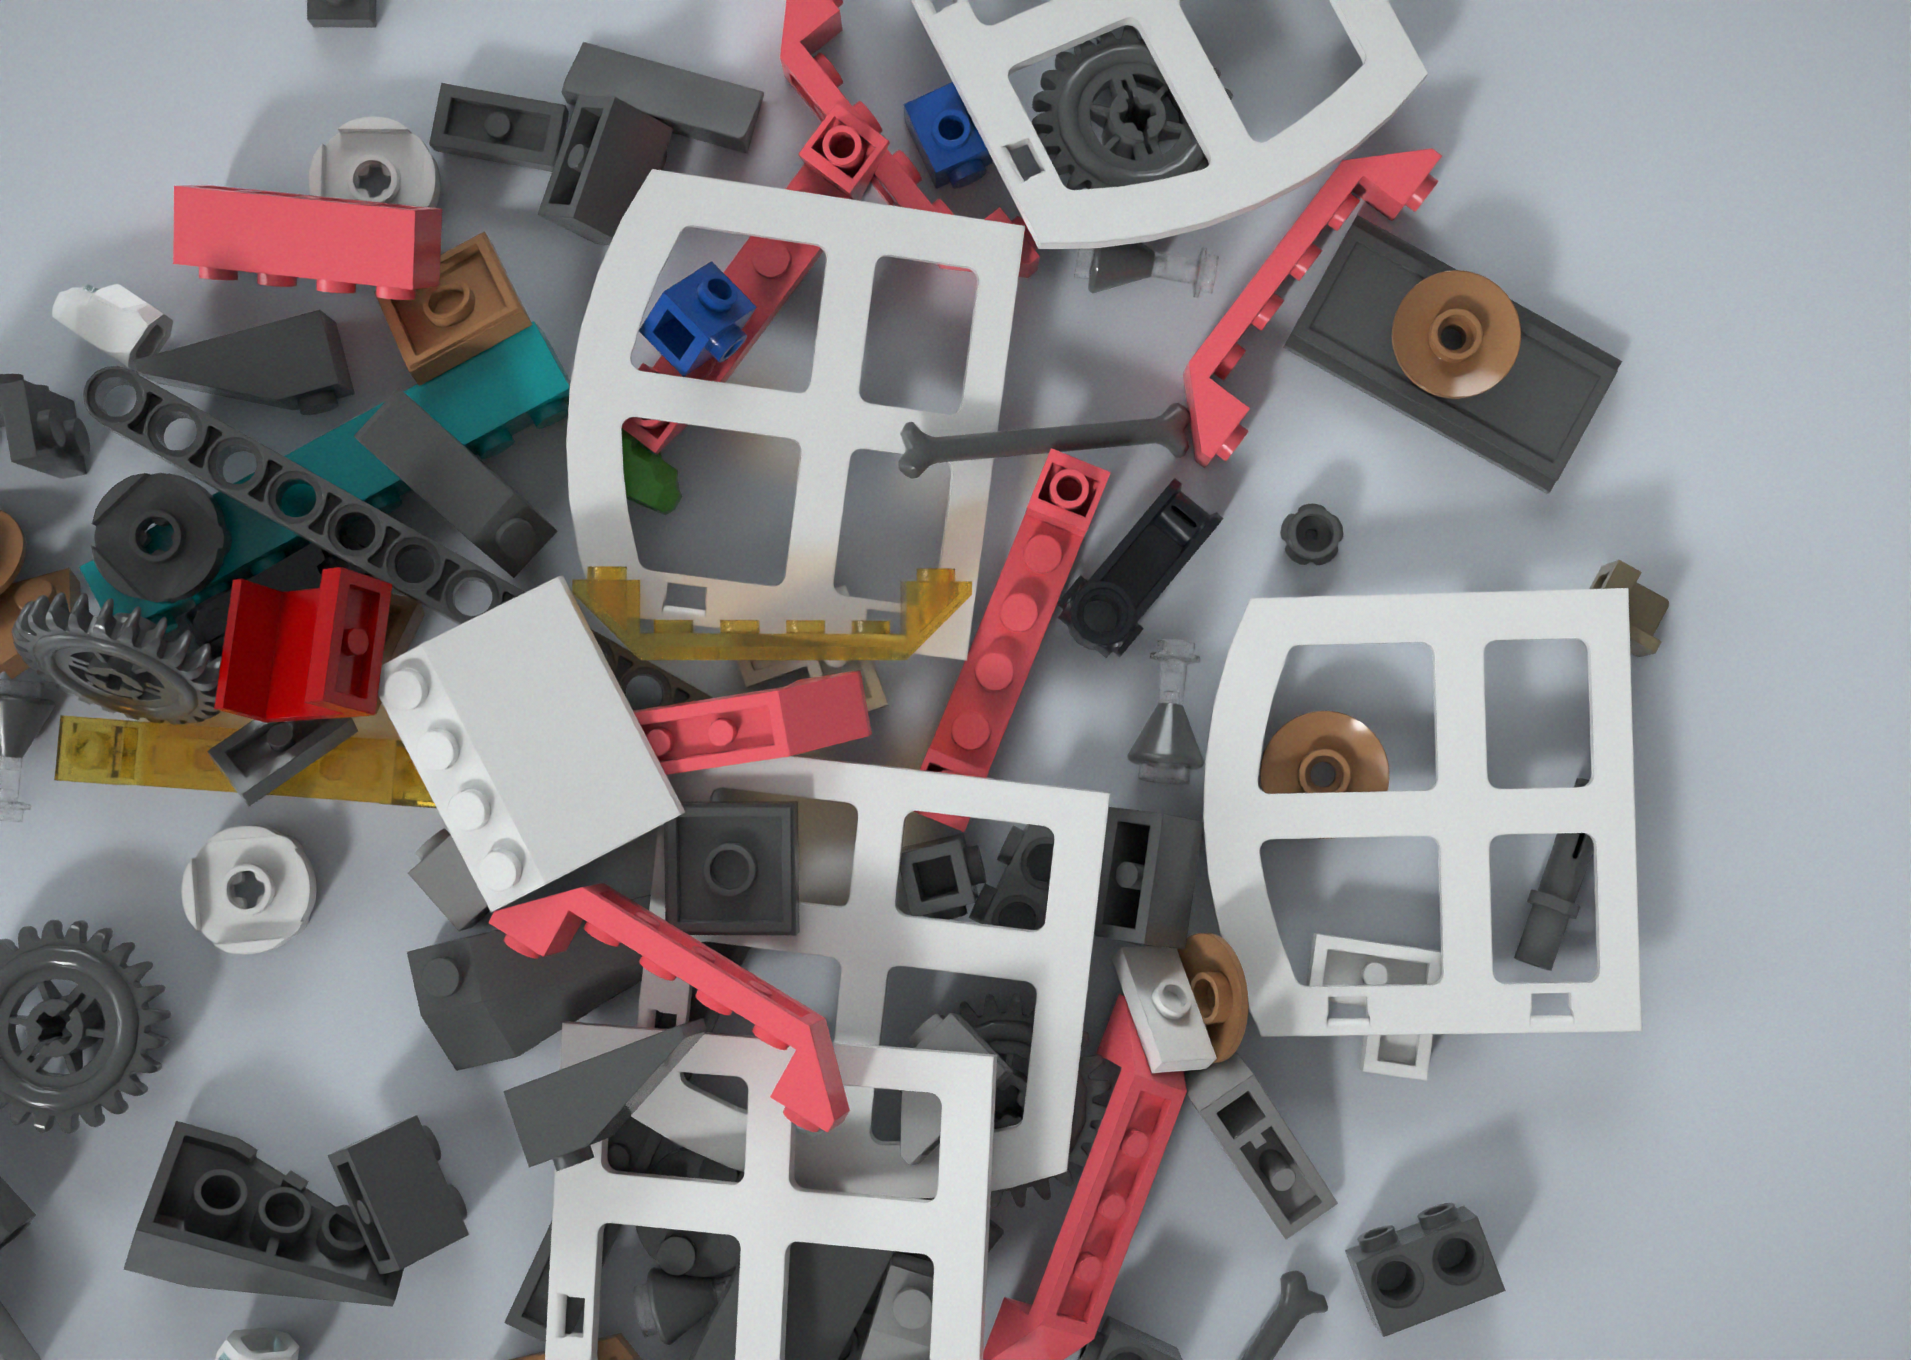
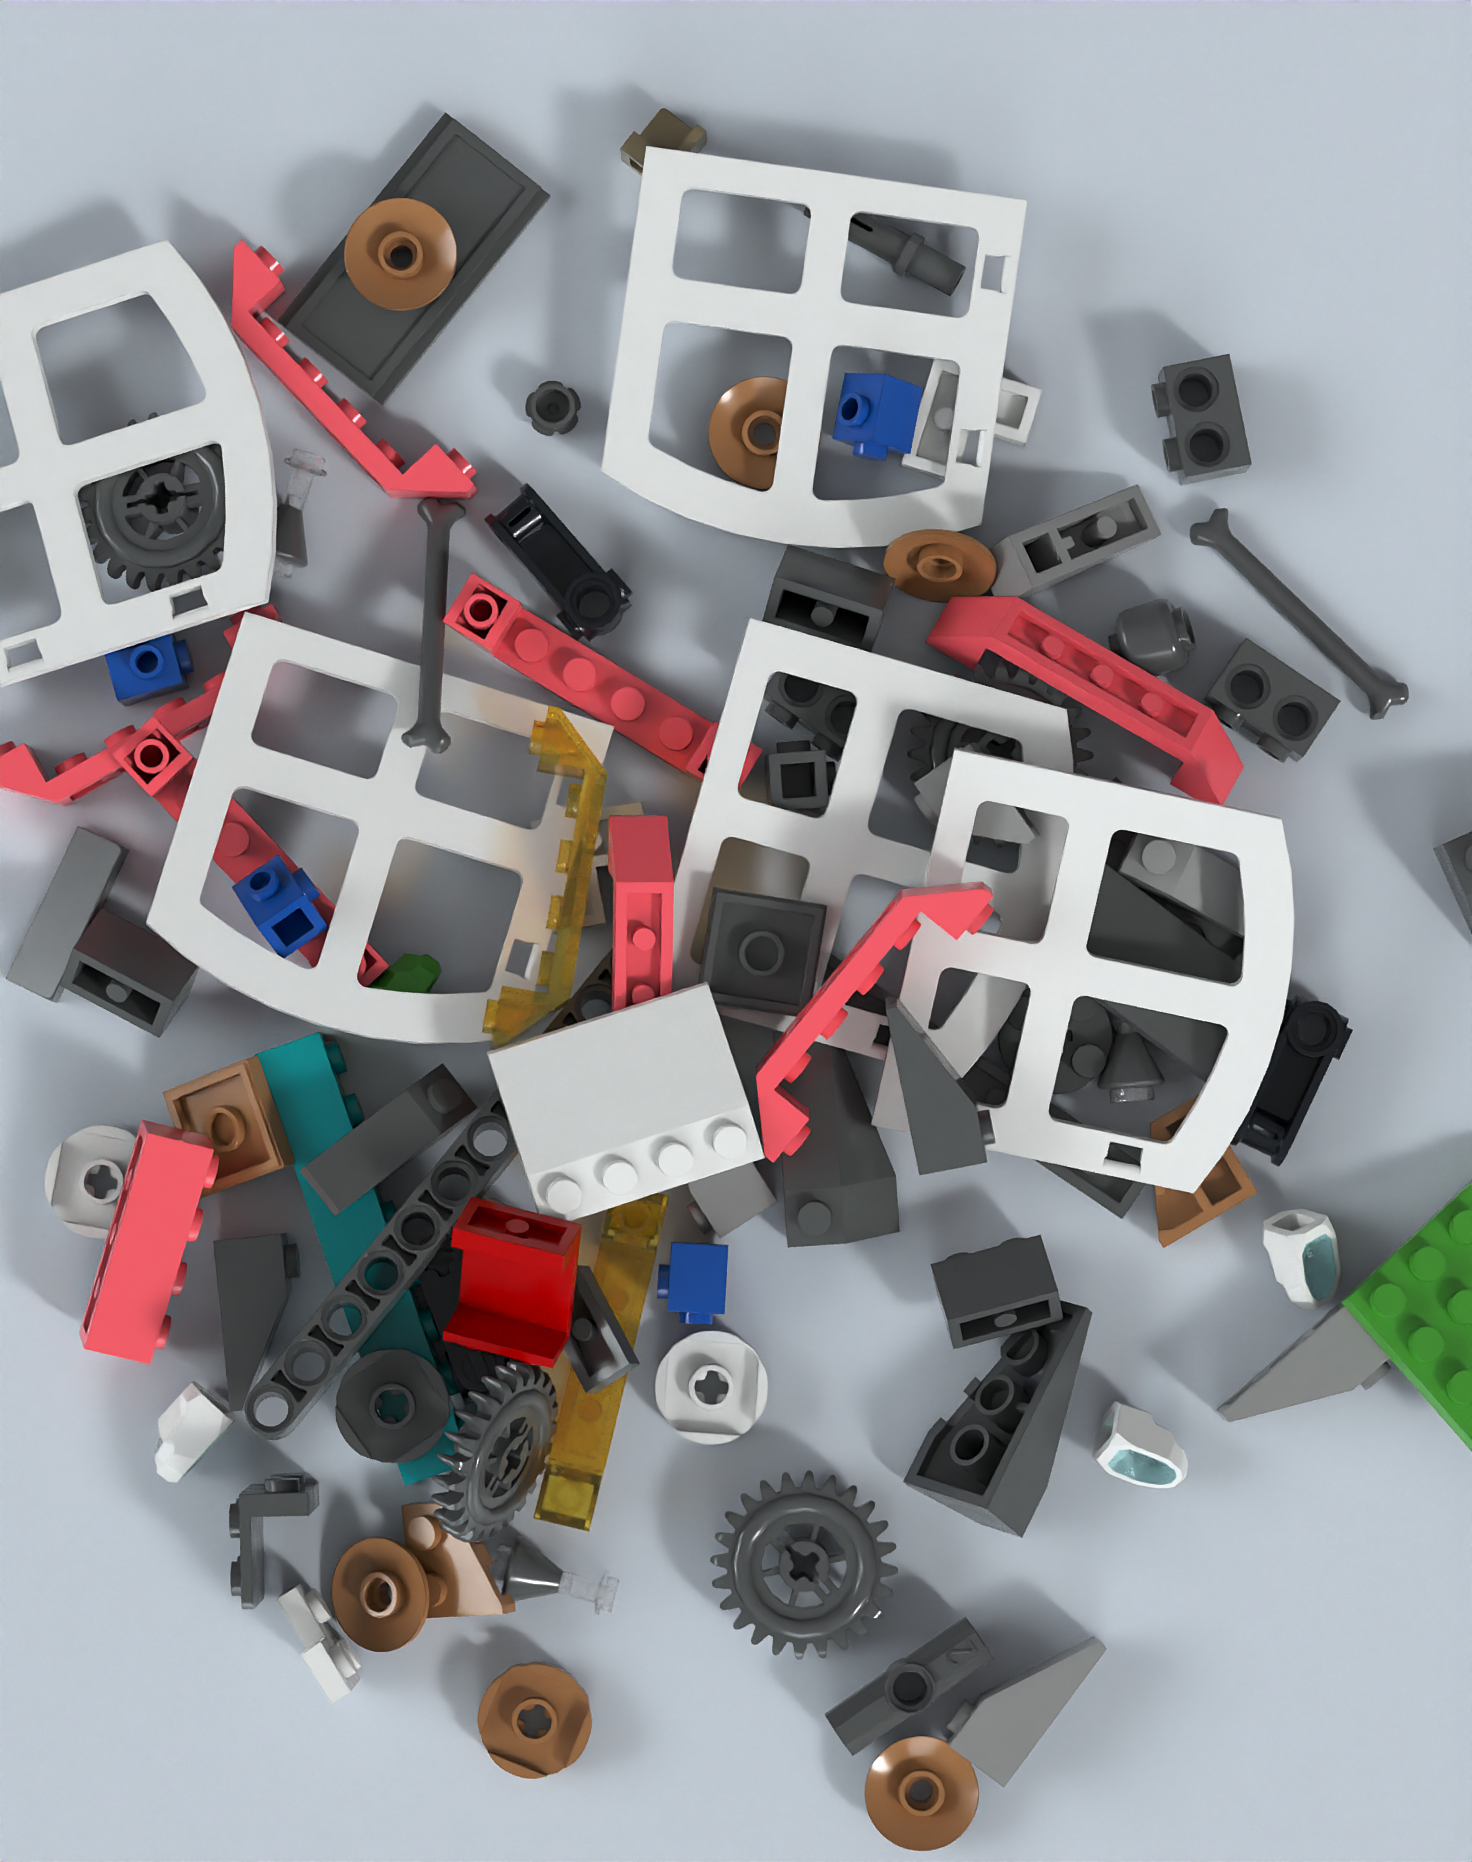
camera: 75 degrees left, 0 degrees up
(360, 852) = (694, 1281): none -> blue brick
(498, 127) = (72, 1063): dark grey plate -> none
(1163, 1009) = (942, 605): white plate -> none
(1167, 744) = (715, 564): piece -> none
(1167, 1252) = (1154, 637): none -> dark grey head
(1366, 898) = (877, 415): none -> blue brick

